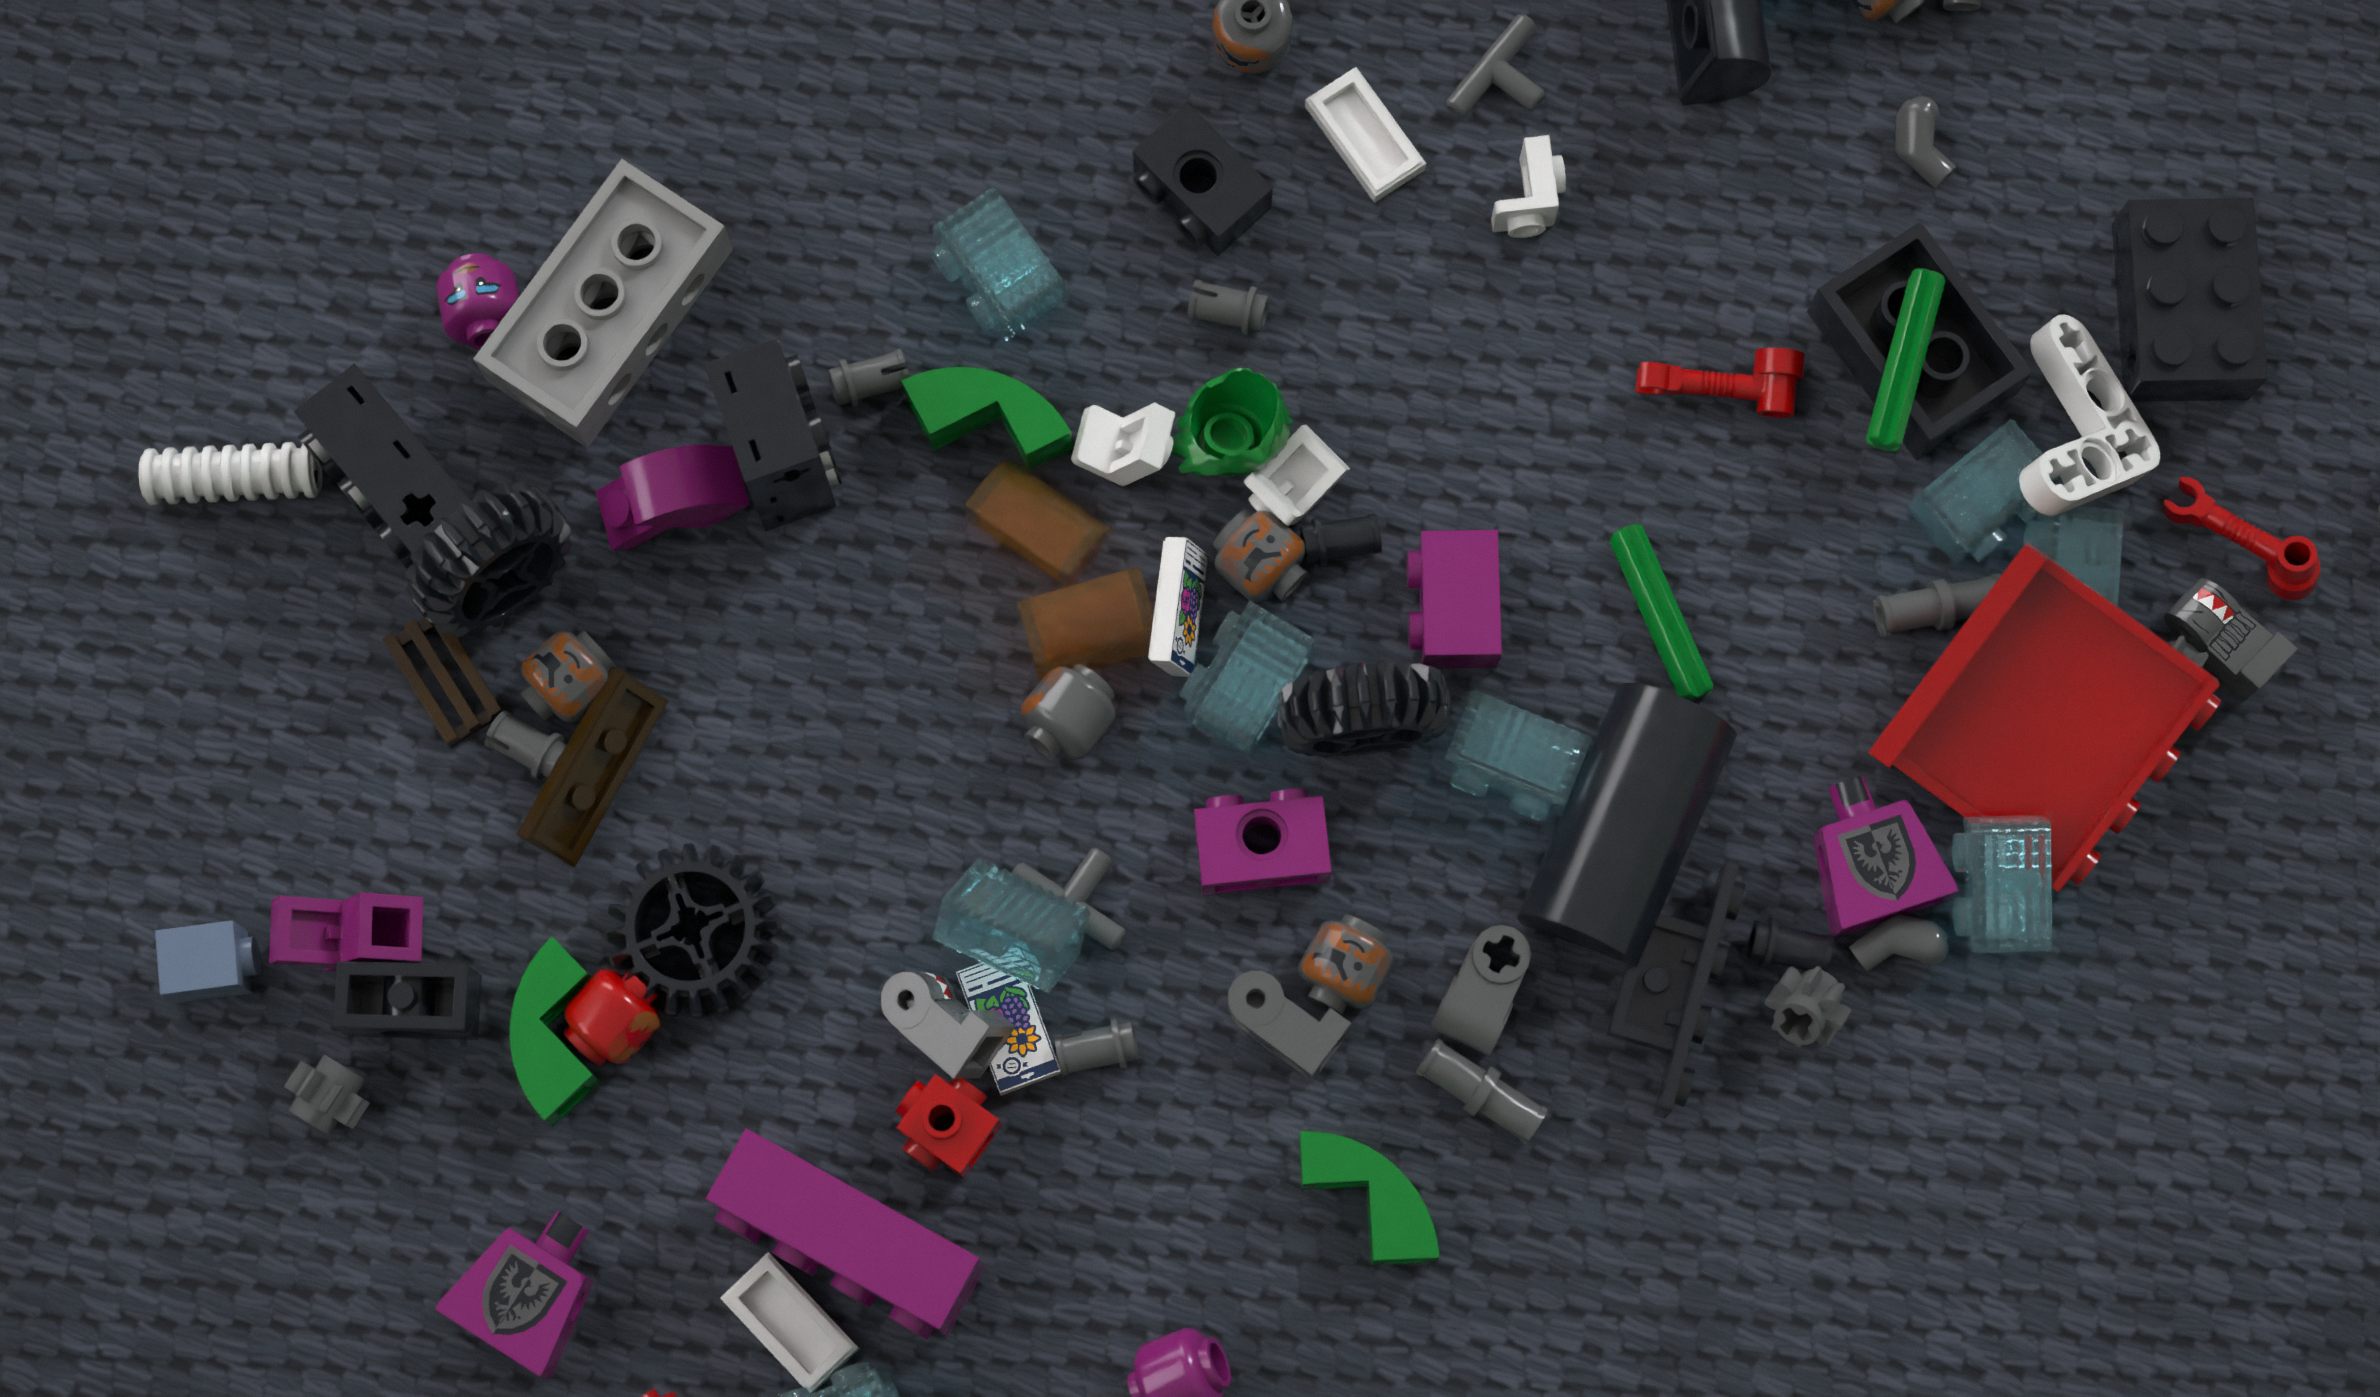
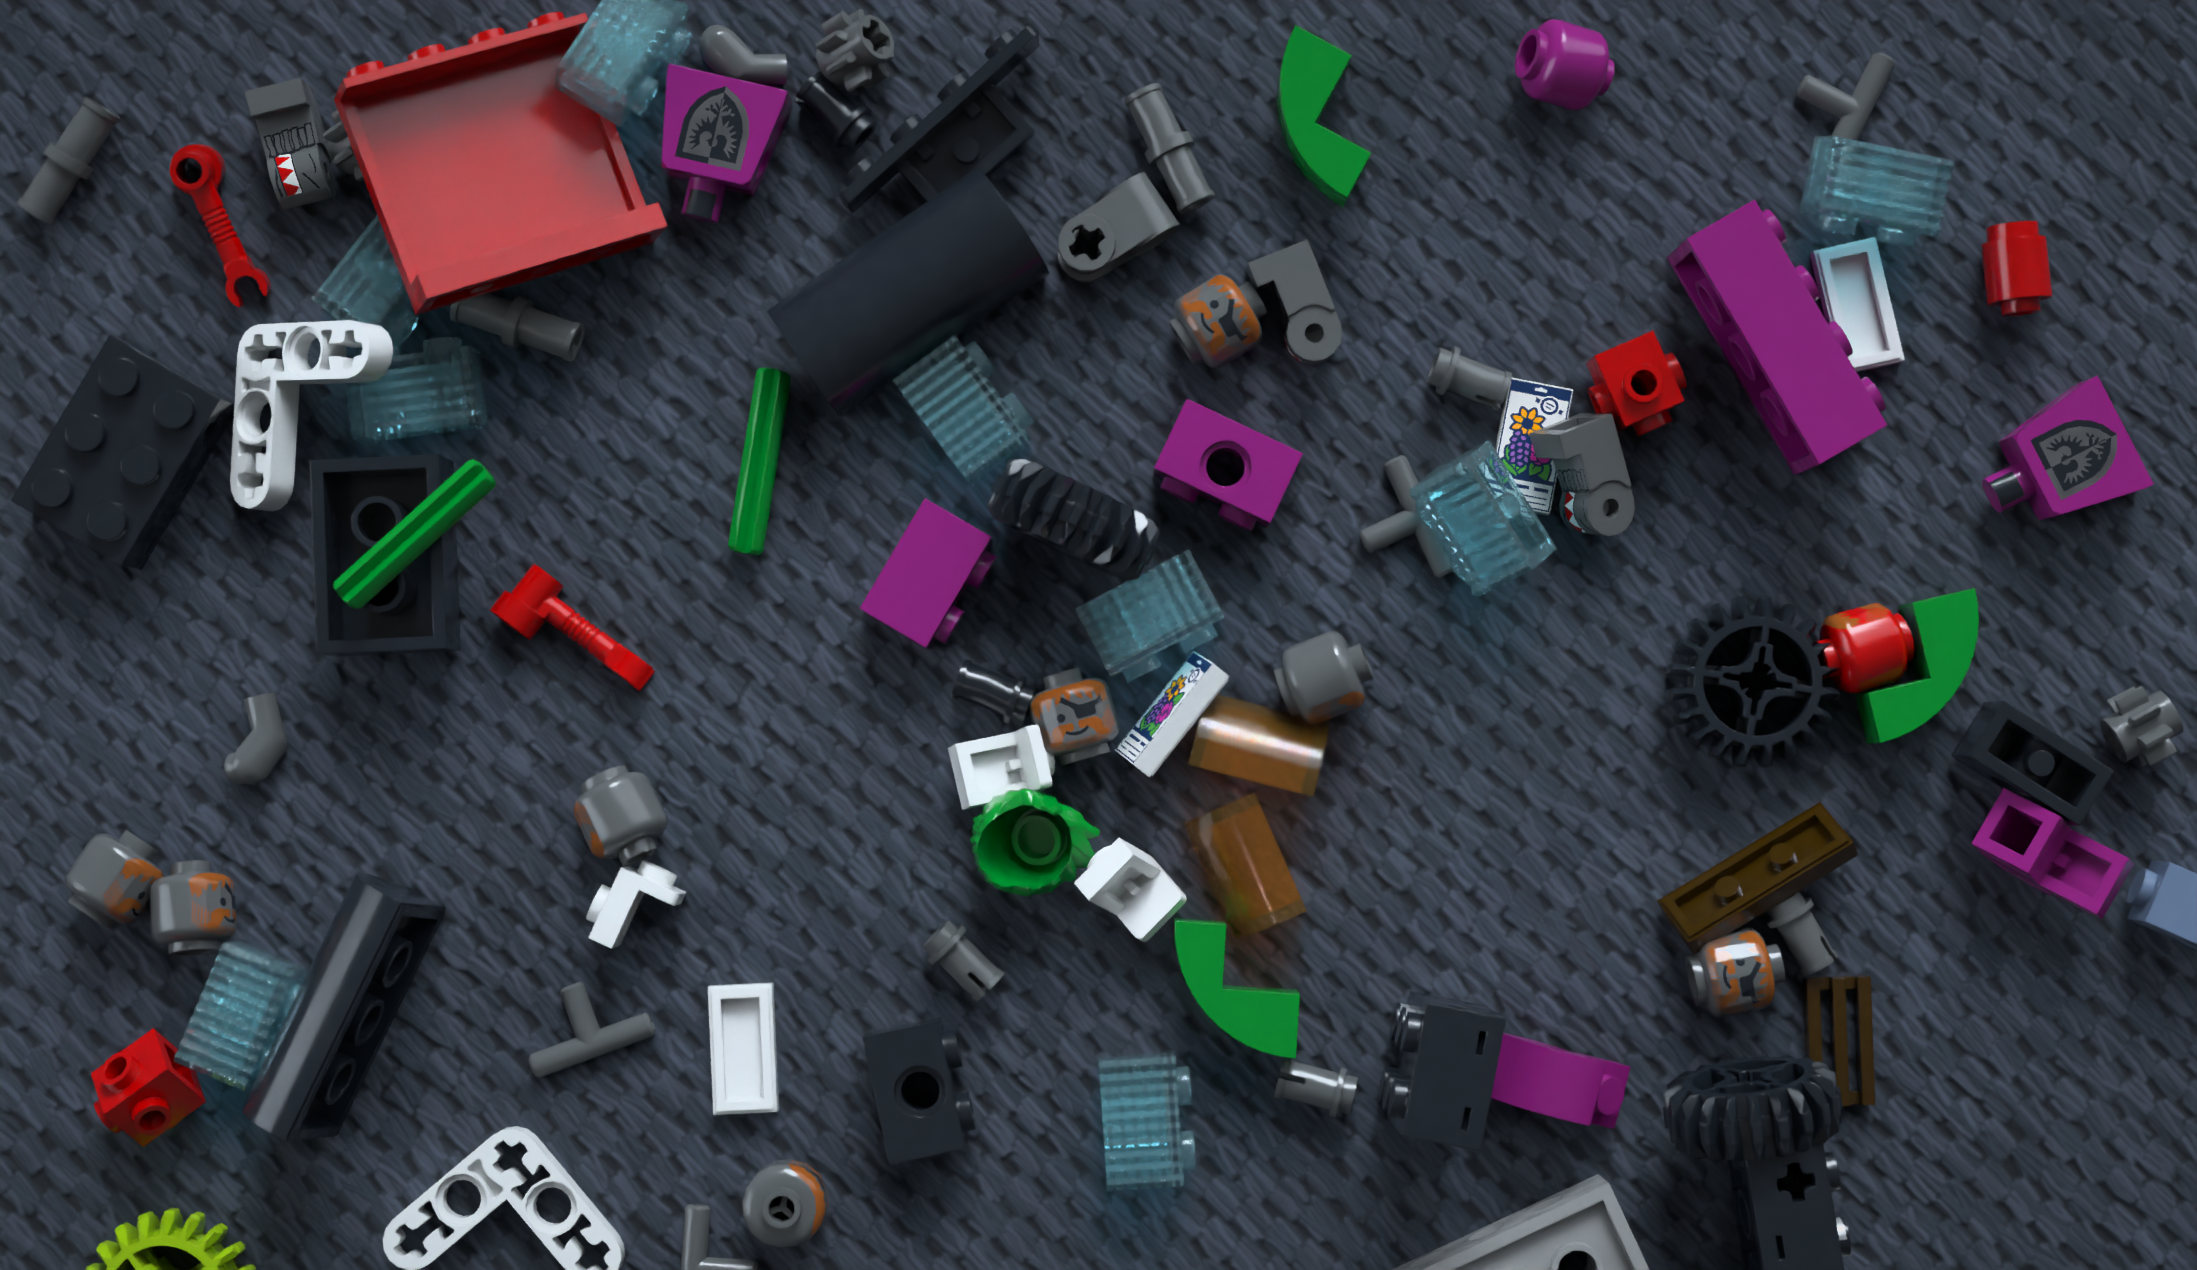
camera: 145 degrees left, 10 degrees up
(1586, 252) = (620, 815): none -> dark grey head

